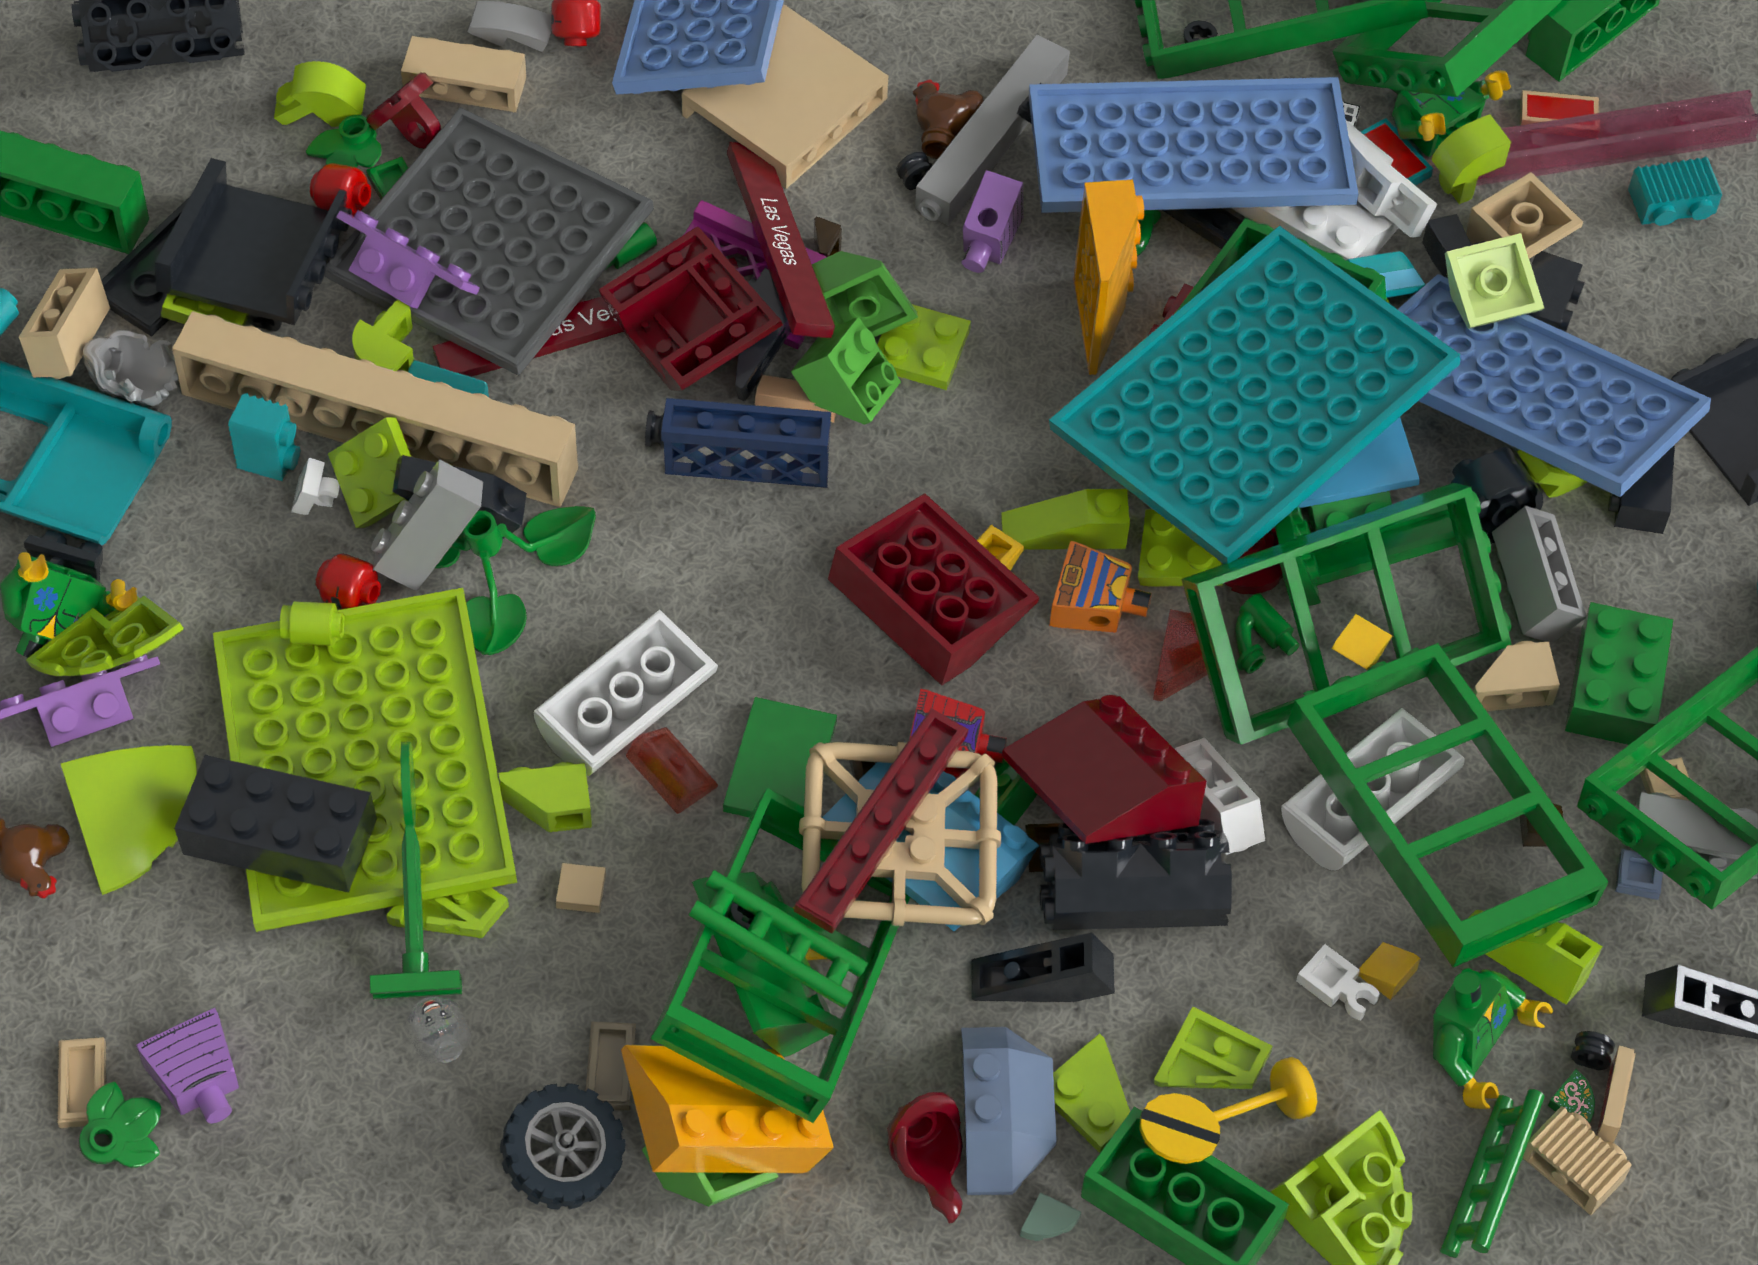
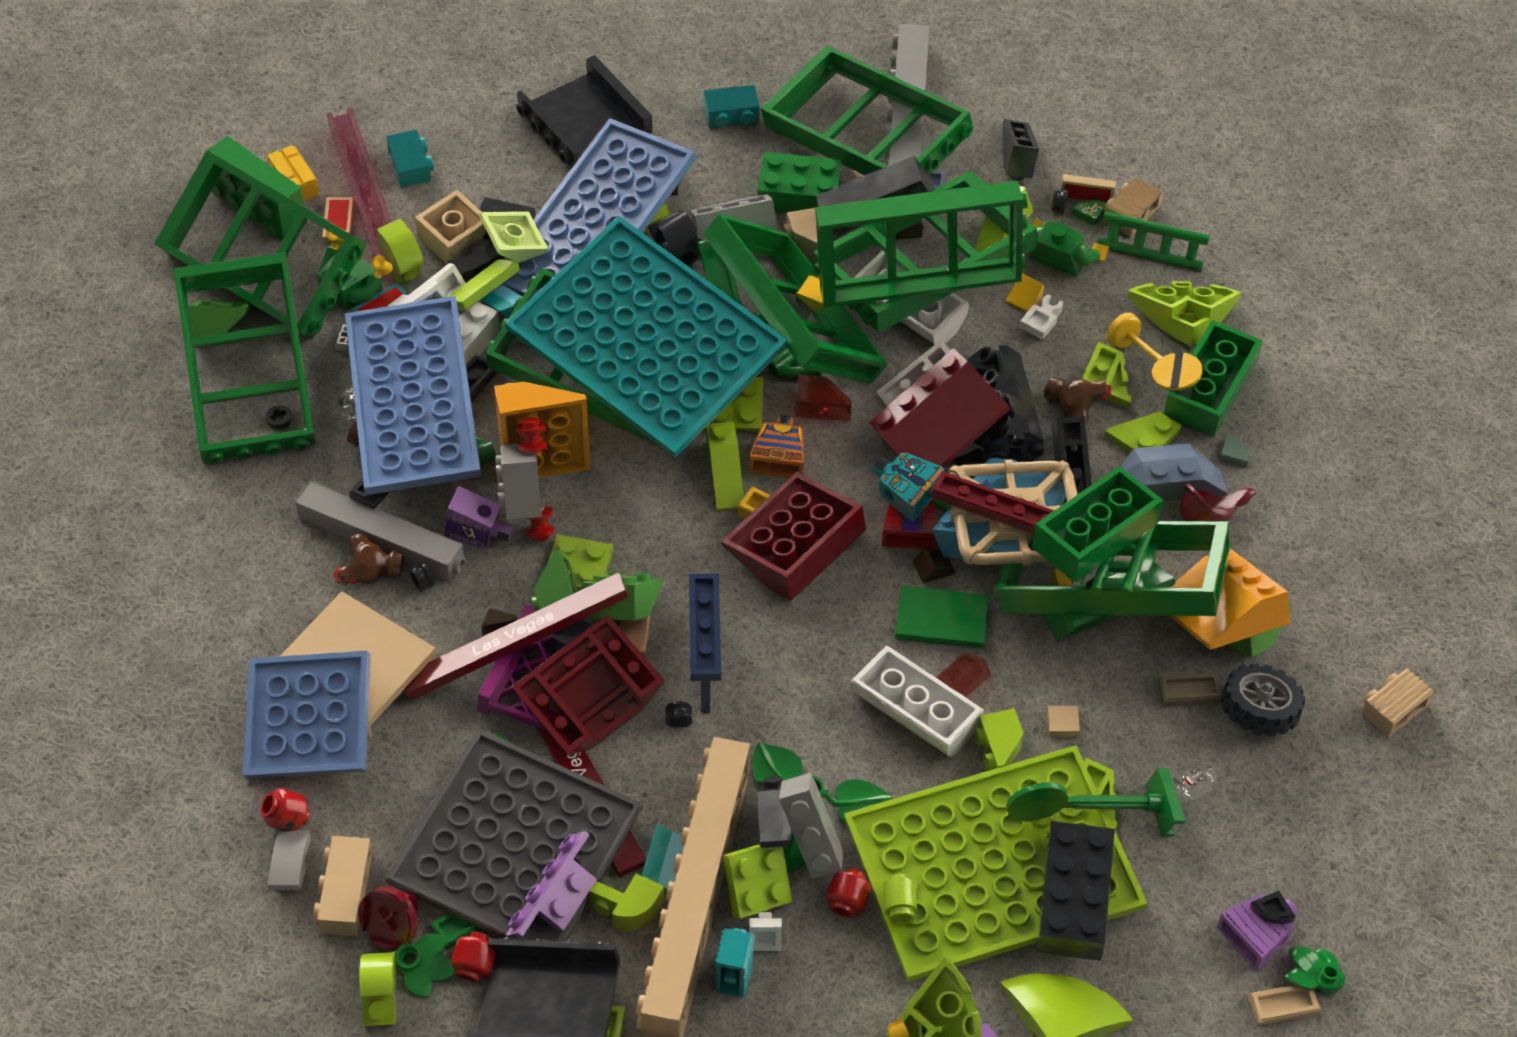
camera: 95 degrees left, 5 degrees down
(202, 1070) = (1273, 909): none -> black tile
(816, 886) = (1097, 523): none -> green brick
(990, 710) = (907, 483): none -> teal torso
(1020, 254) = (520, 486): none -> light grey brick
(1162, 995) = (1076, 395): none -> reddish brown animal
(1371, 813) = (928, 280): none -> green window
(1401, 245) = (484, 283): none -> lime tile
(1548, 740) = (895, 180): none -> black slope
(1638, 57) = (293, 166): none -> yellow brick

